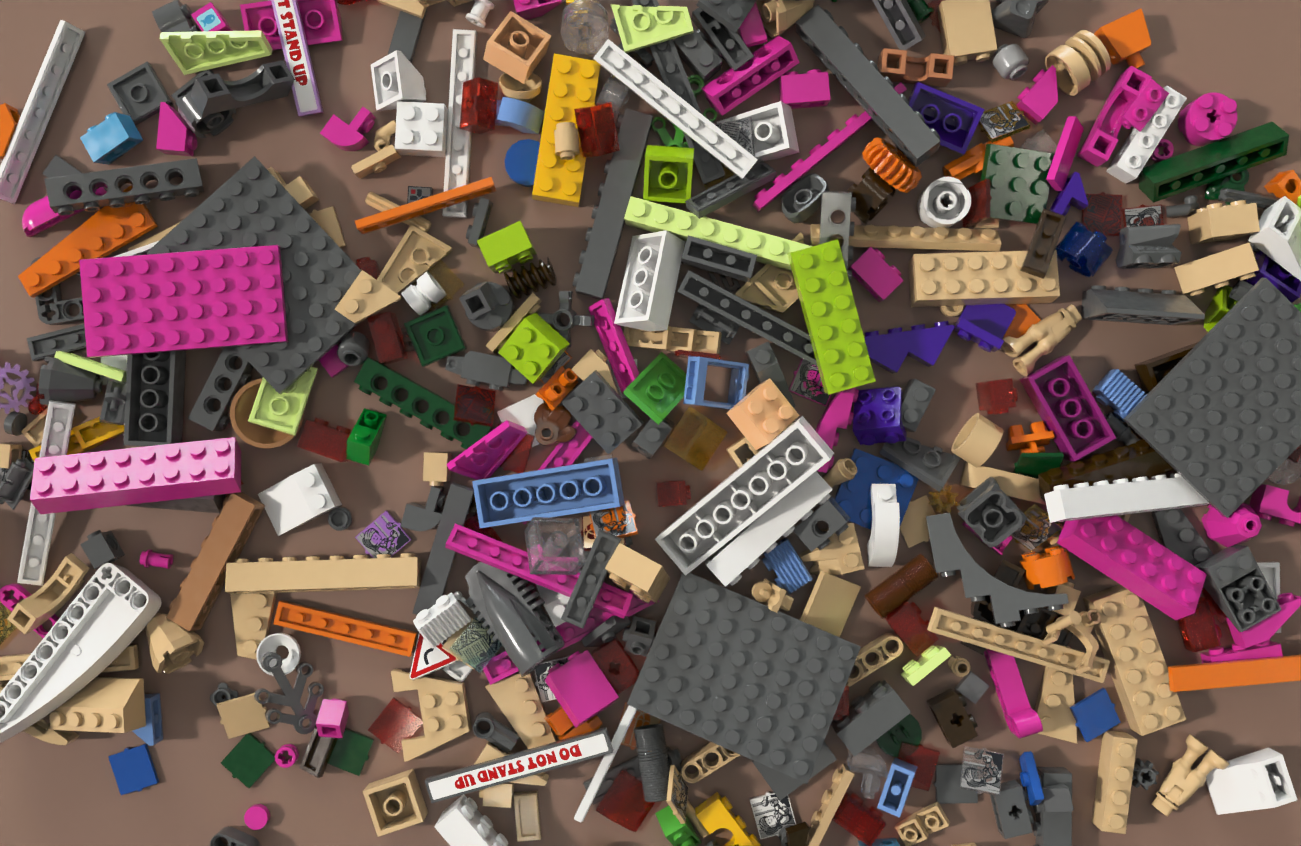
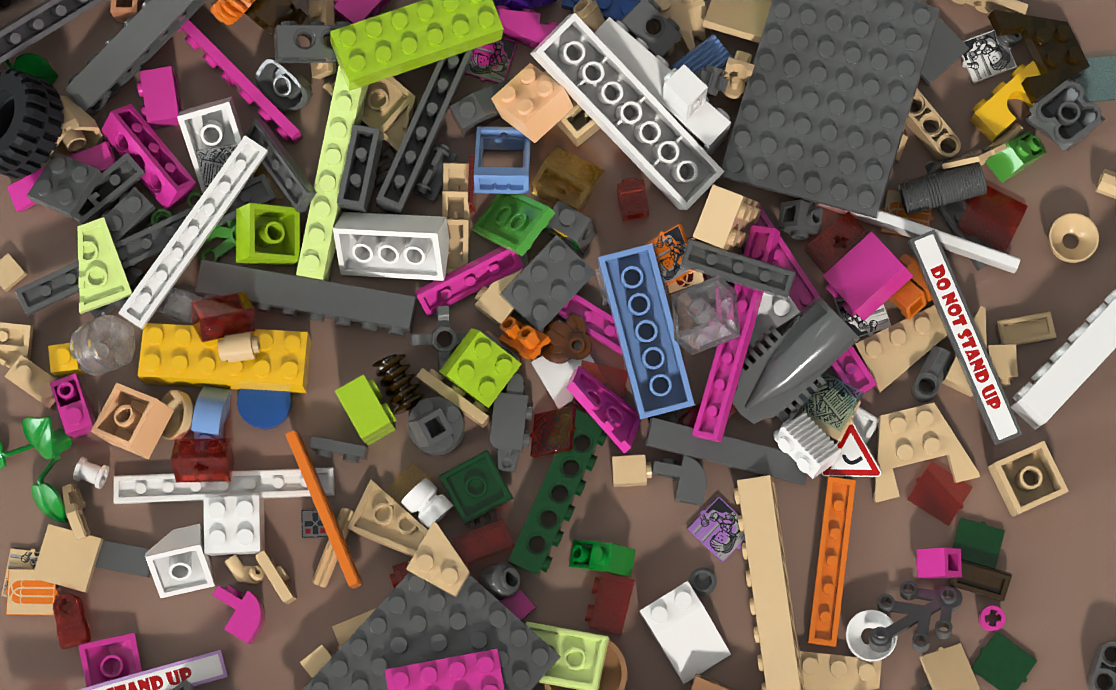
camera: 90 degrees left, 10 degrees down
(257, 816) = (1069, 647): dark pink tile -> none
(606, 631) = (800, 256): dark grey plate -> none
(752, 548) = (684, 92): none -> white brick
(767, 572) = (713, 79): none -> dark grey gear

